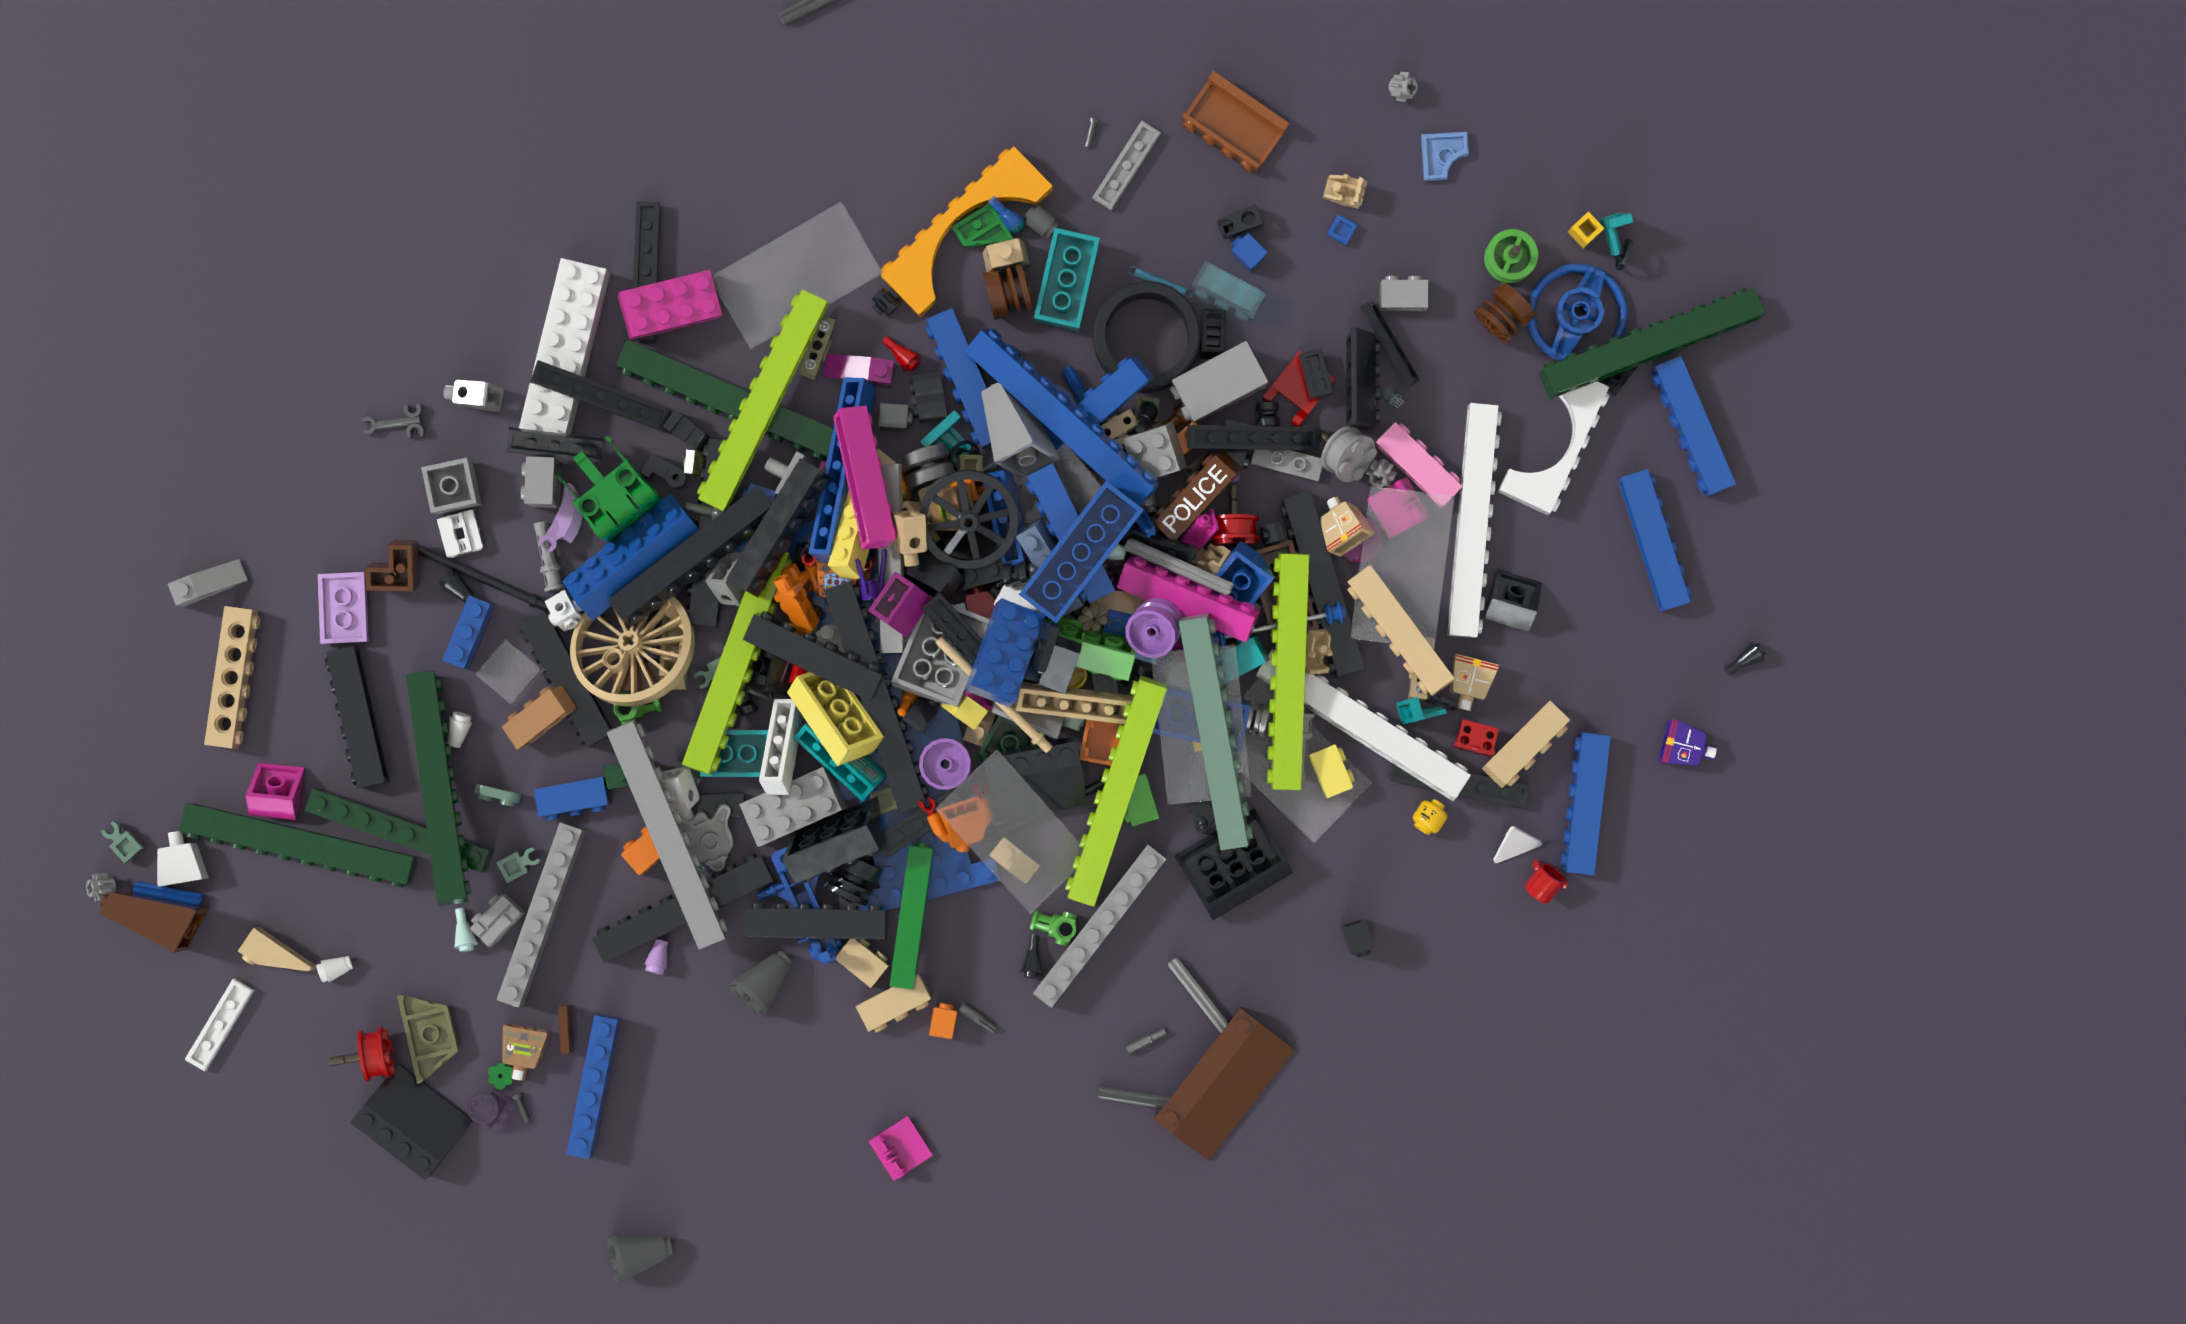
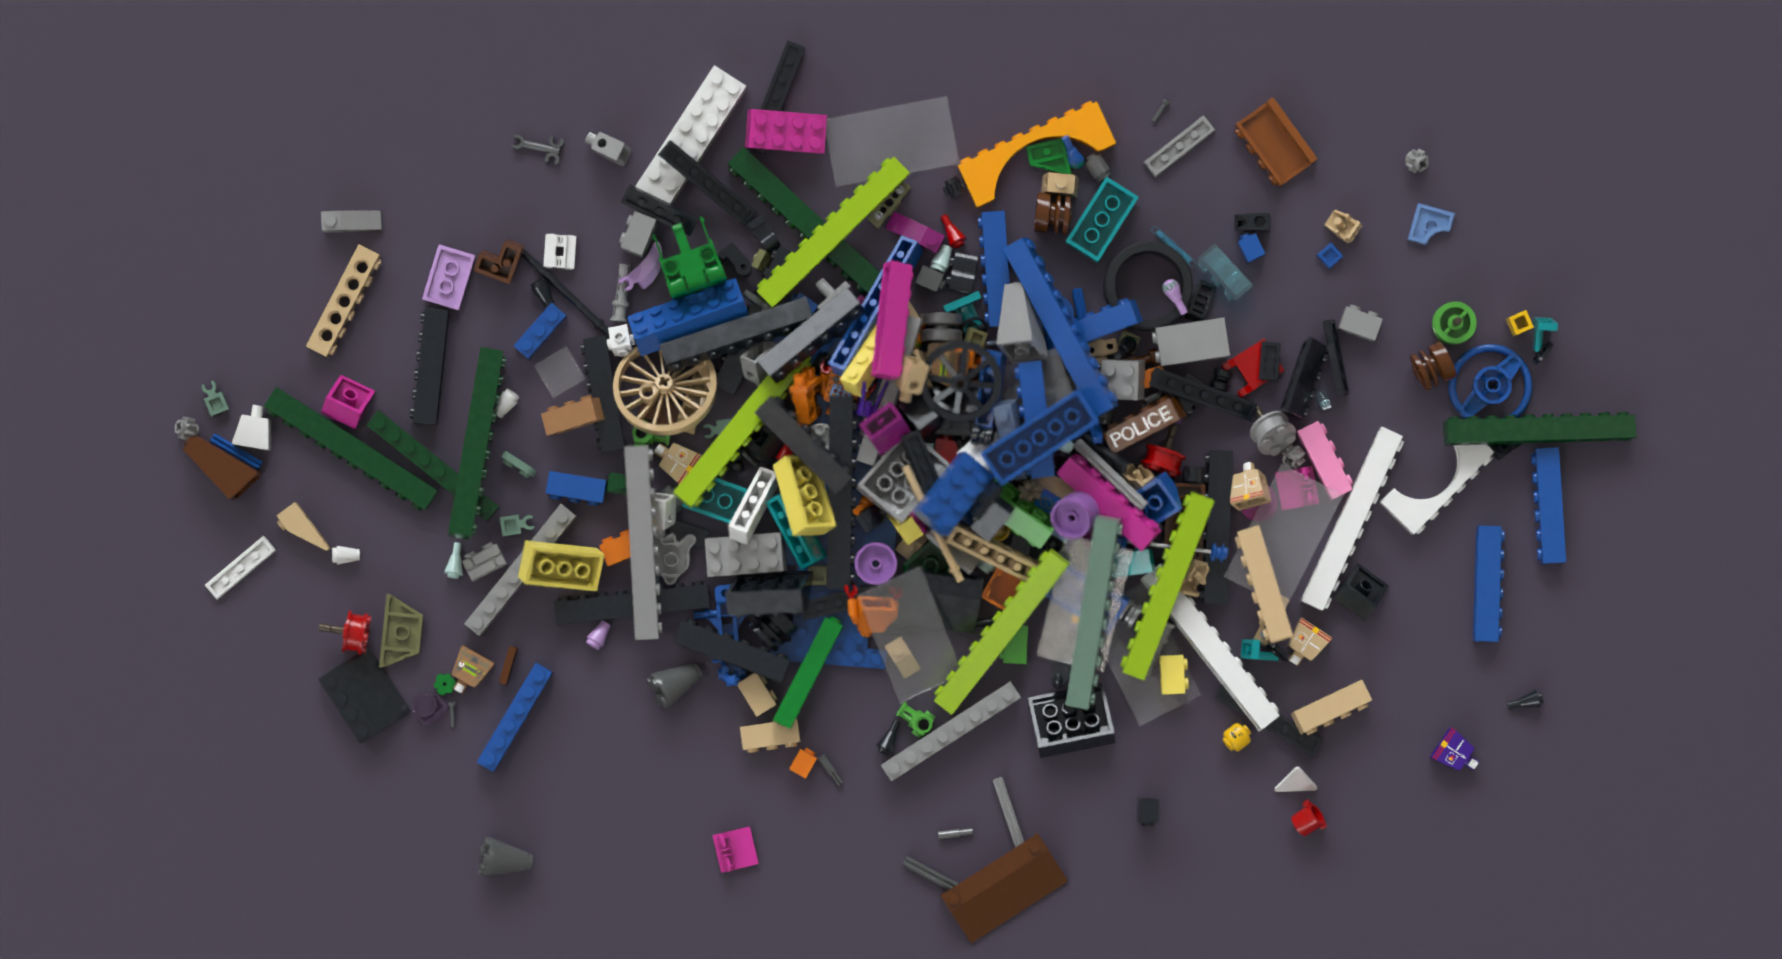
camera: 10 degrees right, 0 degrees up
(451, 486) = (566, 212): light grey brick -> none
(583, 894) = (561, 565): none -> light yellow brick
(675, 725) = (677, 460): none -> tan torso
(900, 389) = (941, 260): none -> light aqua cone
(1175, 330) = (1172, 290): none -> lavender piece
(1201, 530) = (1137, 452): dark pink hinge -> none
(1289, 462) = (1224, 423): light grey plate -> none
(1476, 739) = (1294, 690): red piece -> none
(1586, 803) = (1362, 769): blue brick -> none

